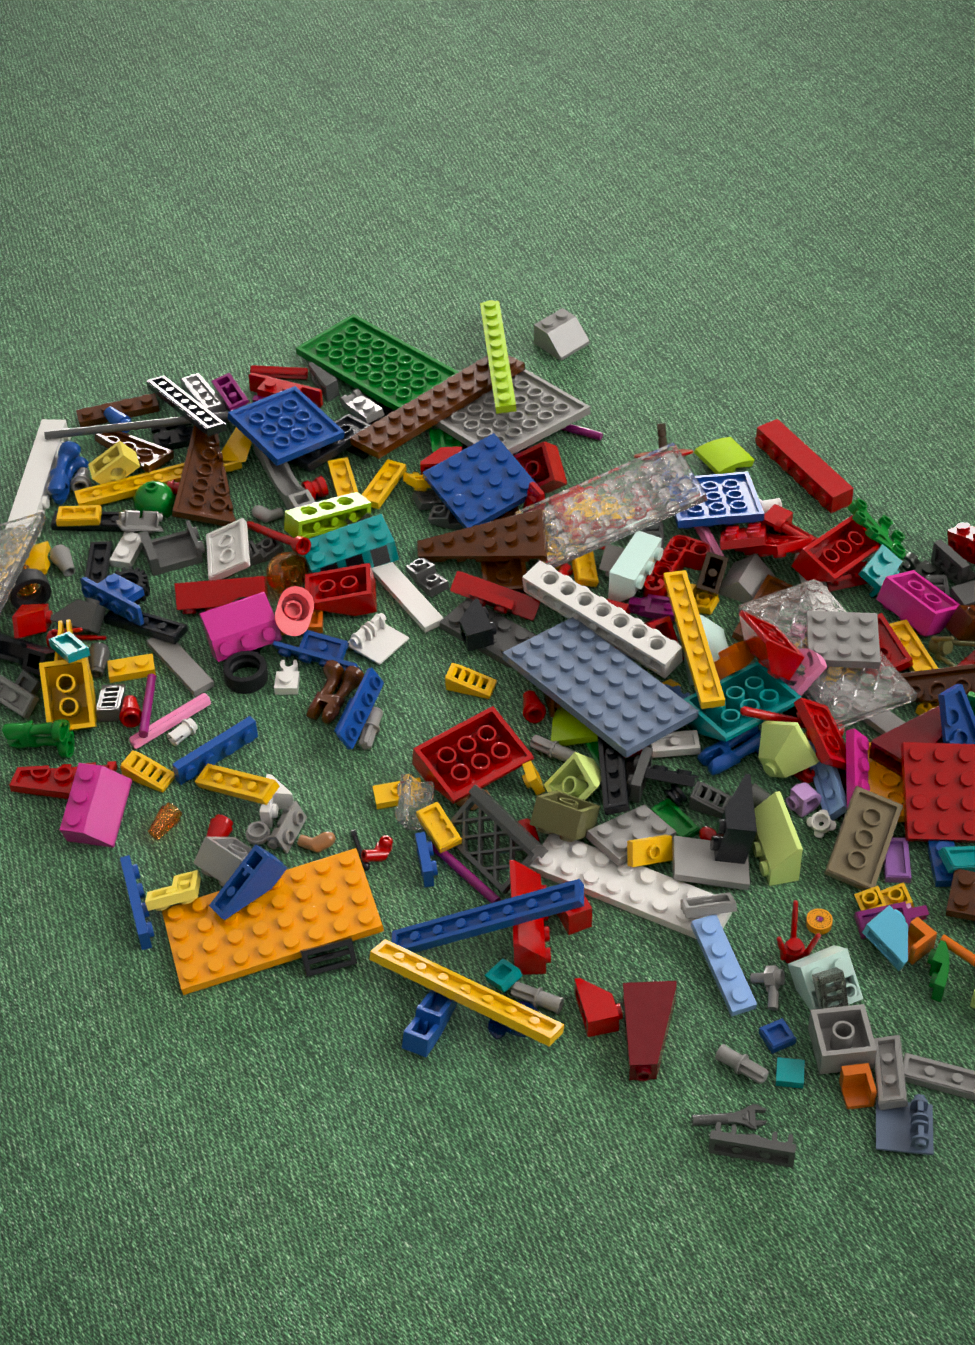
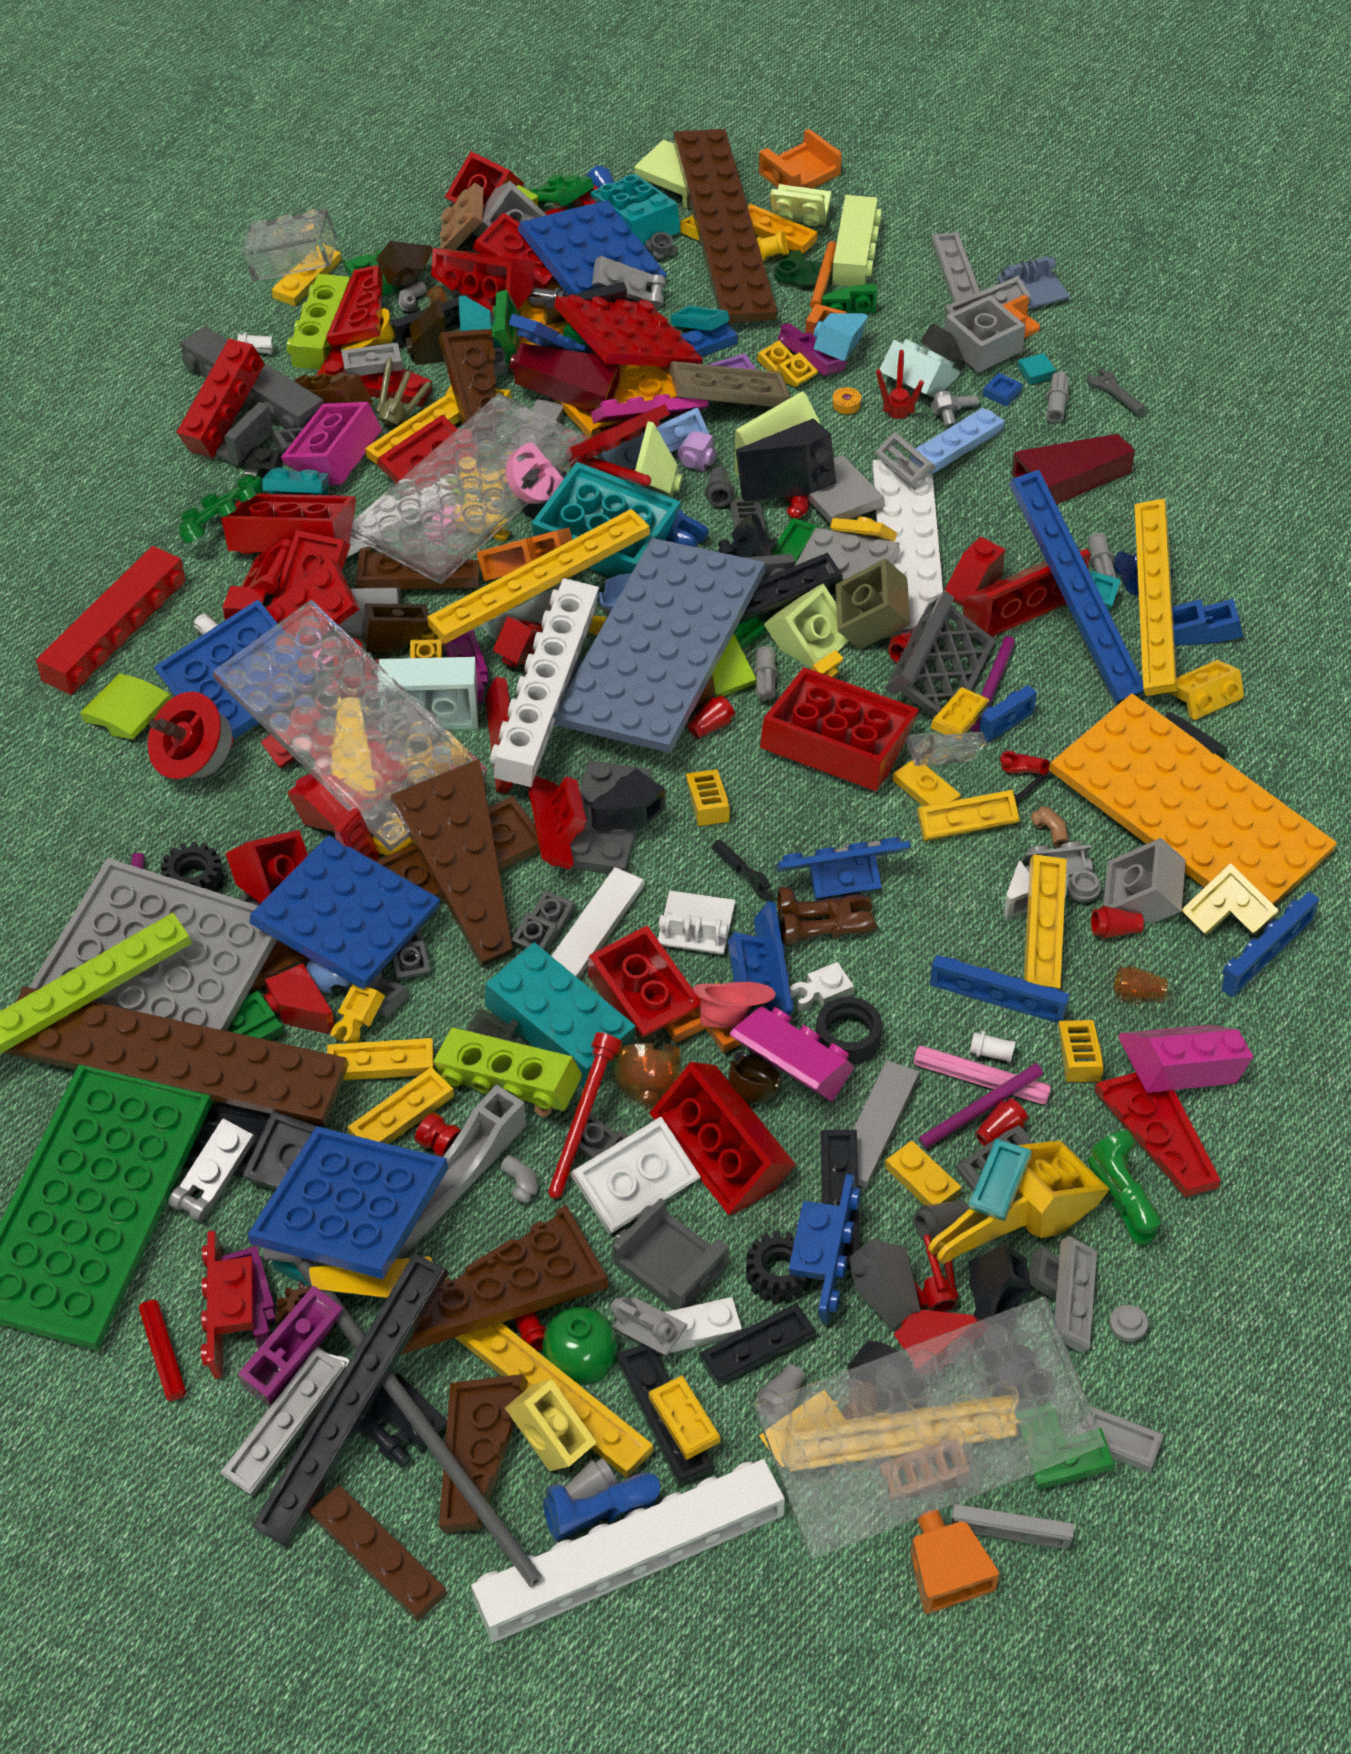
camera: 120 degrees left, 5 degrees up
(115, 416) = (416, 1515): blue cone -> none
(250, 881) = (1182, 819): blue slope -> none
(324, 381) = (172, 1254): dark grey slope -> none
(356, 800) = (968, 815): none -> yellow tile
(368, 990) = (1209, 688): none -> yellow bracket
(386, 674) = (756, 879): none -> black piece
(578, 447) = (195, 858): none -> black tyre
(597, 1008) = (1086, 507): red slope -> none
(752, 1147) = (1139, 361): dark grey plate -> none
(770, 646) = (523, 496): red slope -> none
(821, 816) = (721, 430): white plate -> none
(844, 638) = (455, 461): light grey plate -> none

